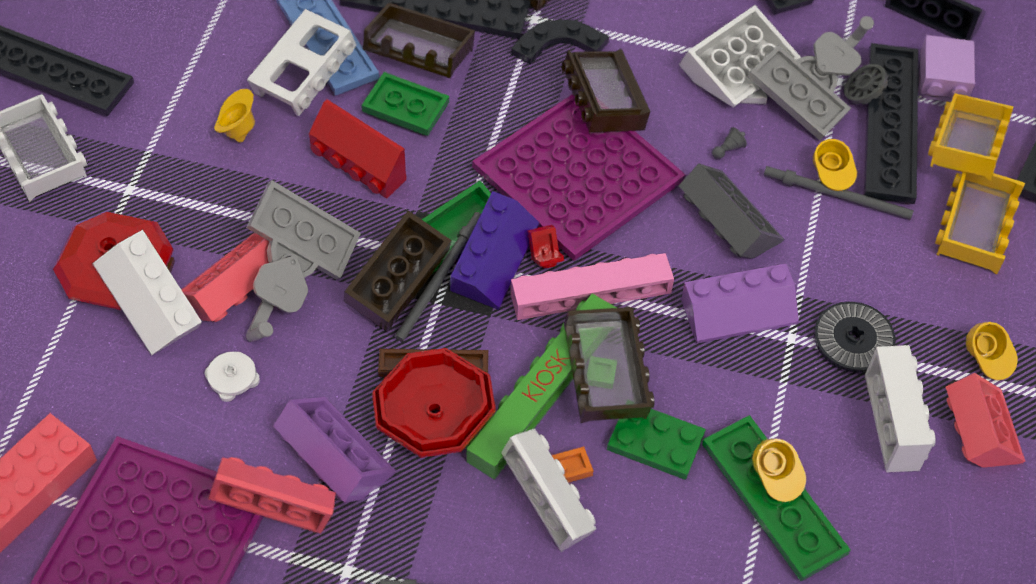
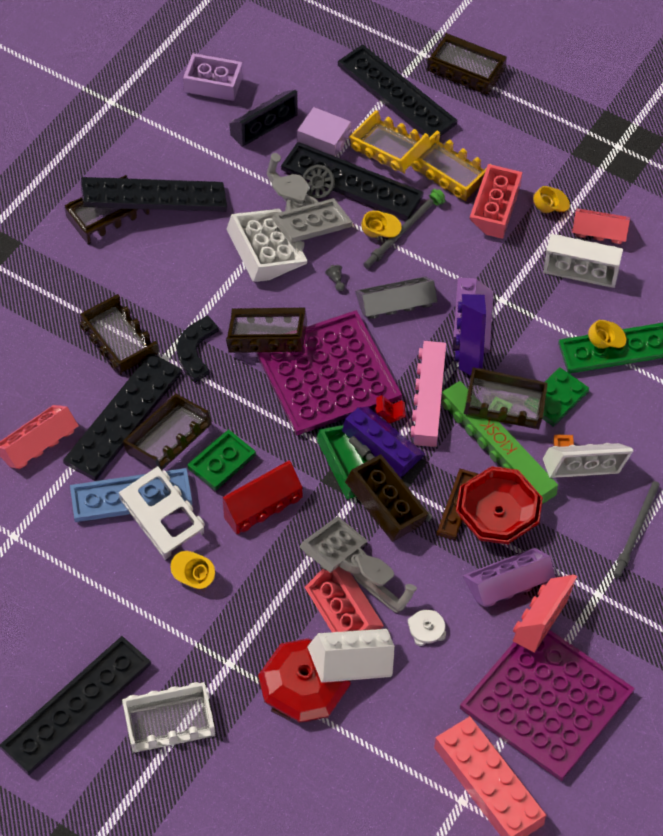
camera: 70 degrees left, 0 degrees up
(687, 292) = (472, 332): none -> dark purple slope
(837, 344) = (502, 266): piece -> none
(918, 216) = (438, 197): none -> bright green plate
(947, 280) = (496, 200): none -> coral slope

